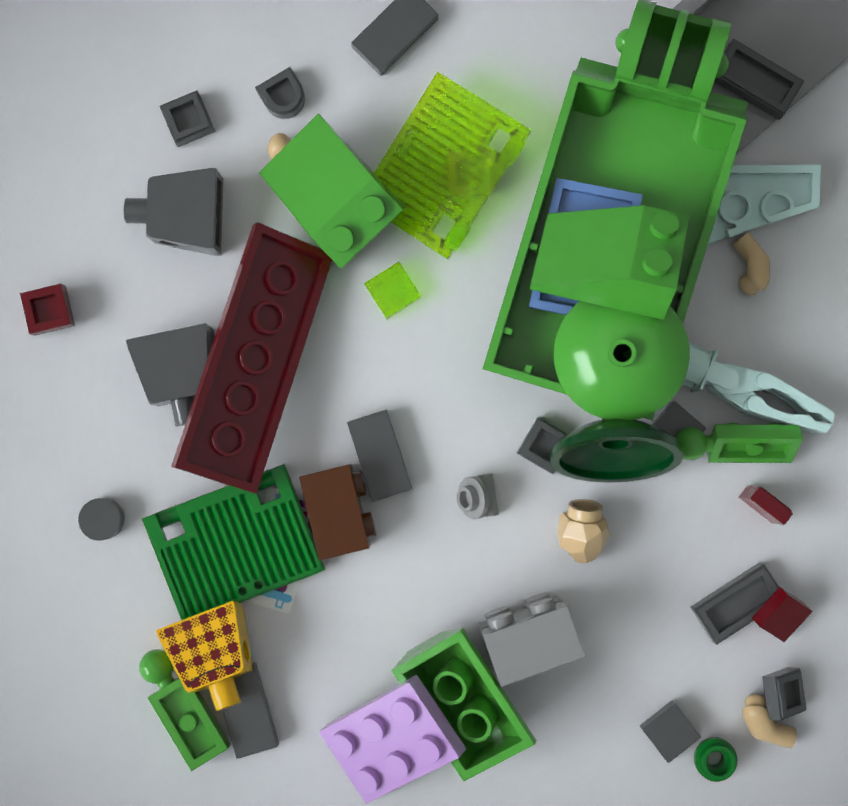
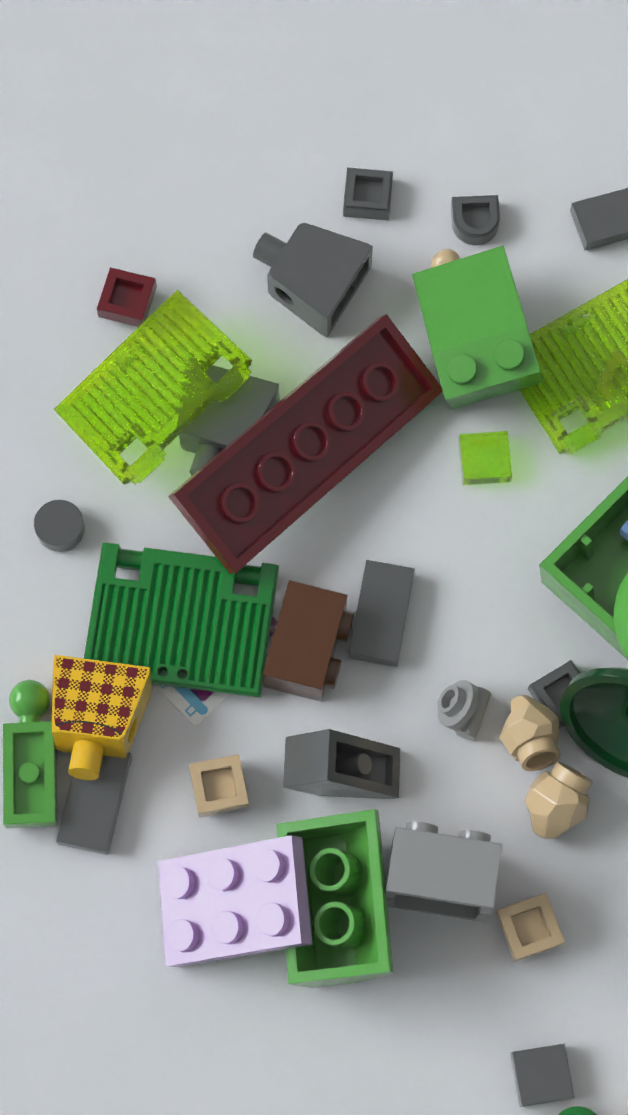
camera: 30 degrees right, 15 degrees down
(109, 377) = (153, 387): none -> clear neon green window
(331, 653) = (219, 785): none -> tan plate
(413, 592) = (341, 765): none -> dark grey slope
(537, 491) = (531, 734): none -> tan rock
(609, 634) = (530, 927): none -> tan plate

